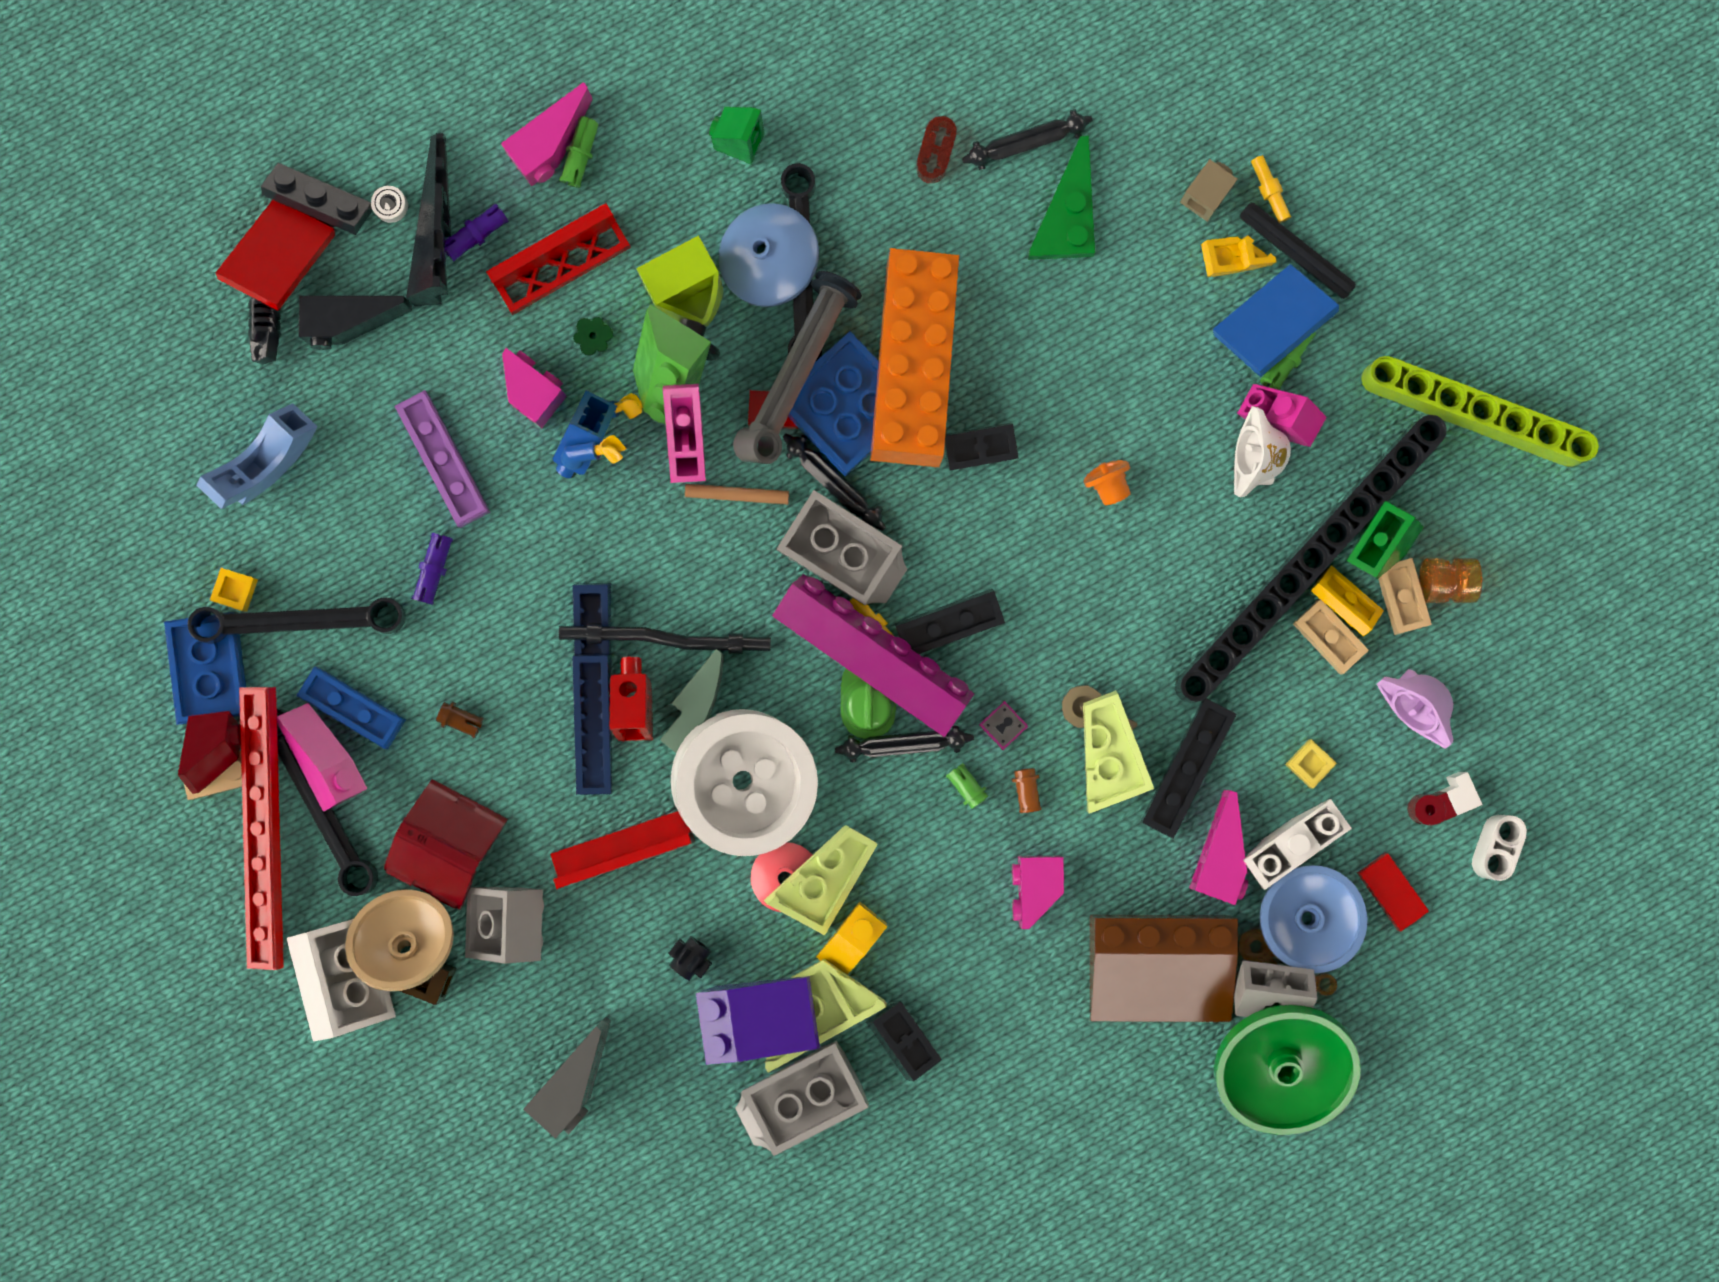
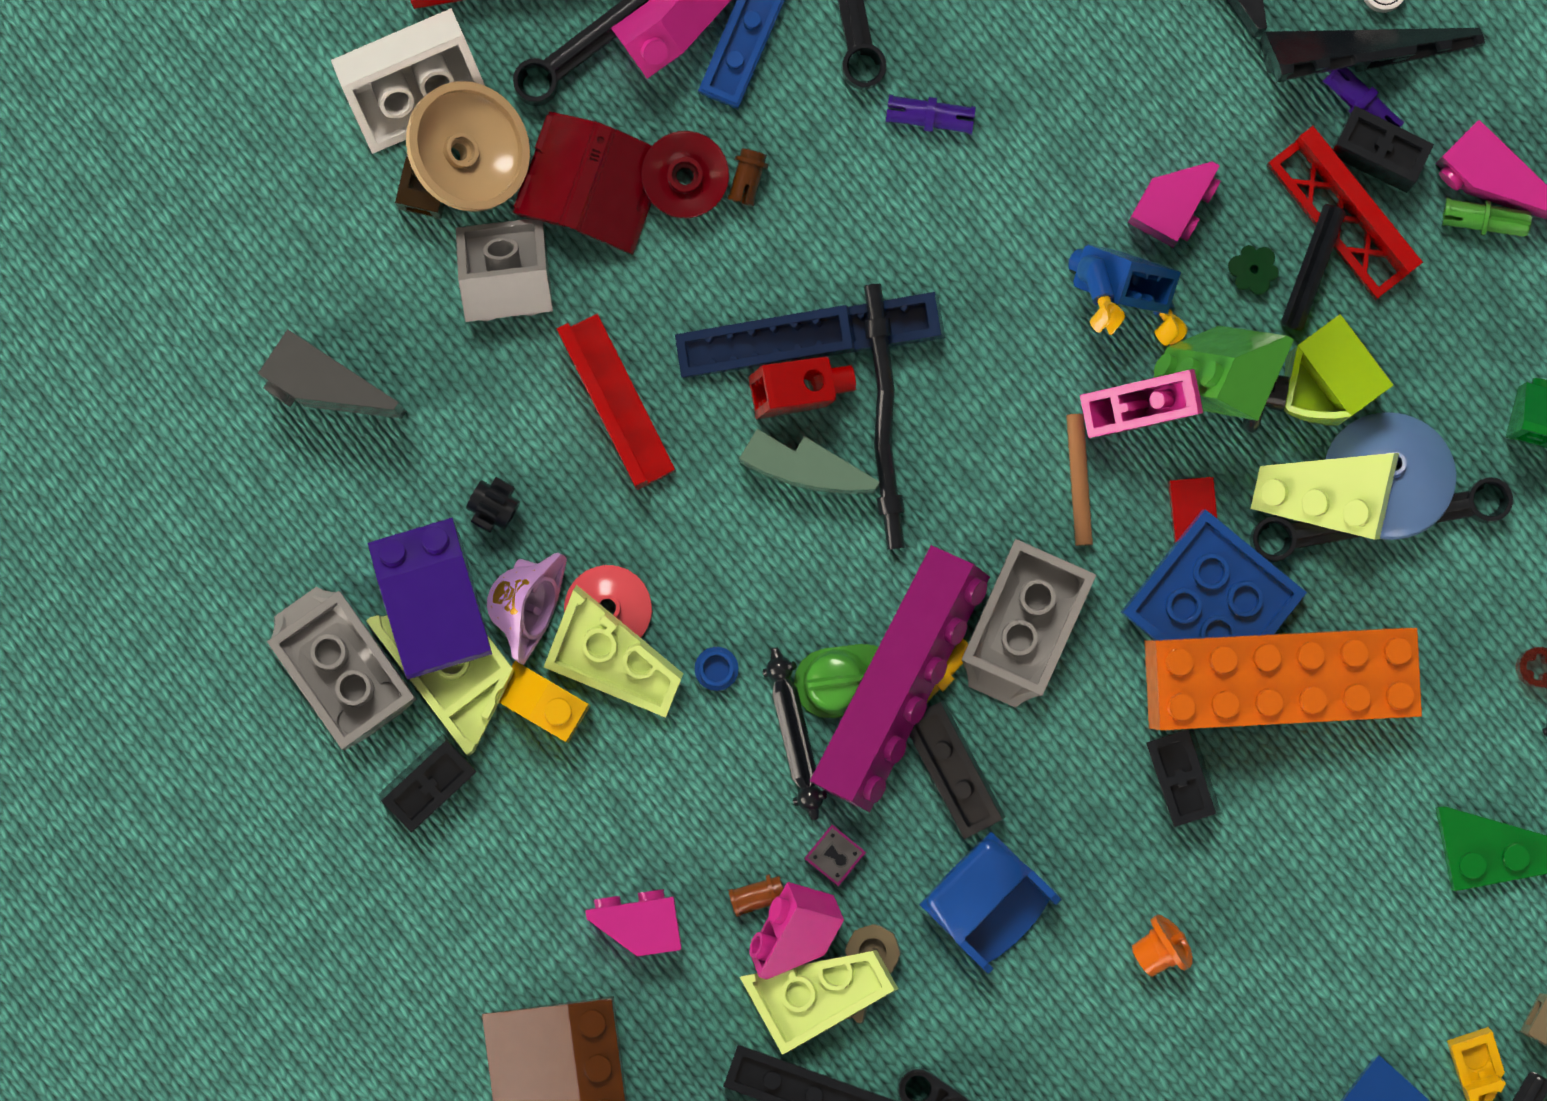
camera: 80 degrees right, 0 degrees up
(432, 766) = (689, 152): none -> dark red dish
(442, 459) = (1070, 105): medium lavender tile -> none
(513, 221) = (1382, 149): none -> black hinge
(597, 289) = (1313, 267): none -> black axle
(764, 812) = (692, 576): white brick -> none
(771, 943) = (524, 602): none -> lavender hat
(775, 300) = (1330, 493): none -> yellowish green wing
(833, 295) = (1160, 503): dark grey piece -> none
(833, 481) = (1112, 599): black wheel -> none
(844, 798) = (716, 668): none -> blue plate
(967, 786) = (752, 820): bright green pin -> none
(1055, 611) = (988, 901): none -> blue piece
(1060, 764) = (797, 930): none -> dark pink slope

